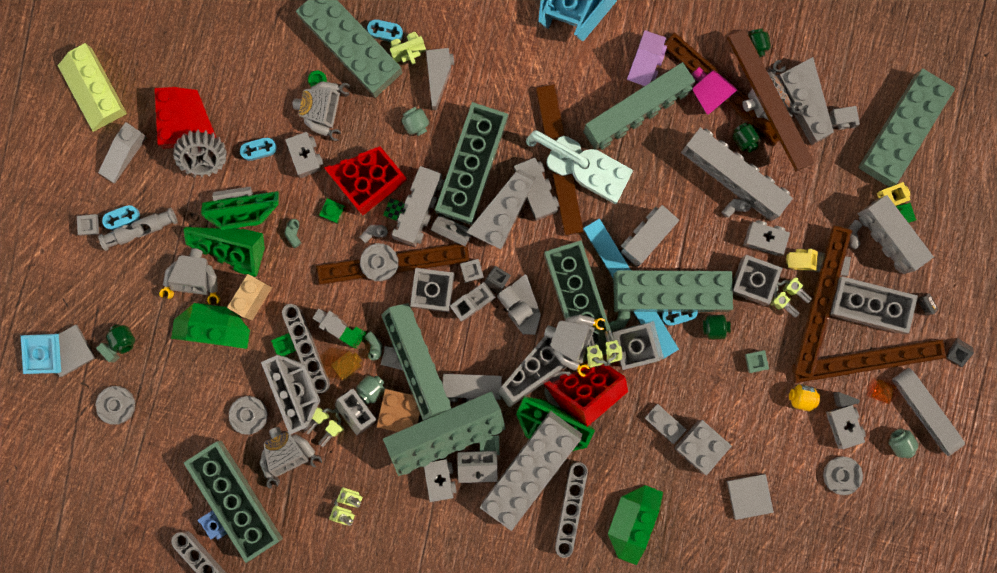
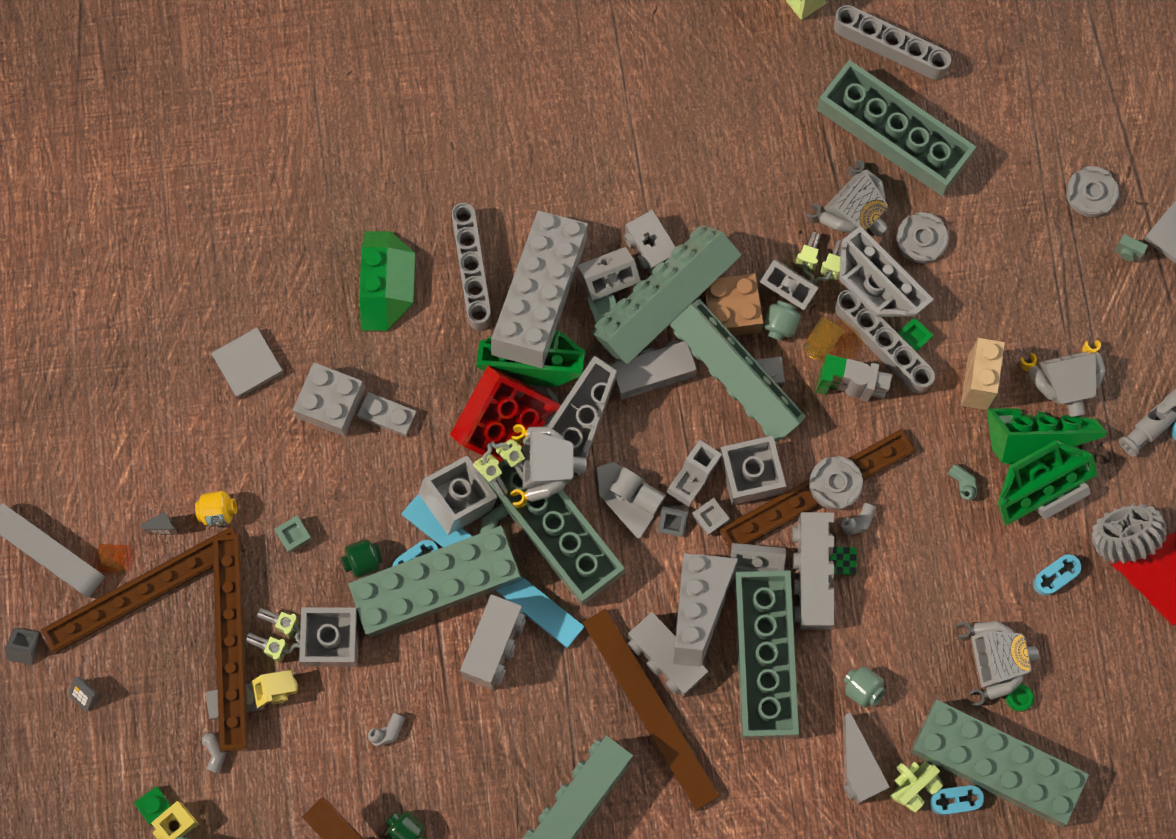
camera: 165 degrees right, 10 degrees down
(120, 338) = (1122, 270): dark green head -> none
(206, 522) = (916, 93): medium blue brick -> none
(211, 326) = (1021, 322): green wedge -> none
(296, 146) = (987, 574): light grey brick -> none
(332, 211) = (925, 529): green plate -> none
(341, 514) = (753, 160): yellowish green piece -> none
(367, 178) = (897, 584): red wedge -> none
(375, 346) = (796, 376): sand green arm -> none
(603, 174) = (584, 706): light aqua plate -> none
(736, 174) = (402, 769): light grey brick -> none
(755, 239) = (318, 694): light grey brick -> none
(838, 419) = (142, 478): light grey brick -> none
(843, 475) = (134, 431): light grey tile -> none
(873, 305) = (159, 660): light grey brick -> none
(895, 235) = (153, 762): light grey brick -> none
(903, 443) = (66, 497): sand green head -> none

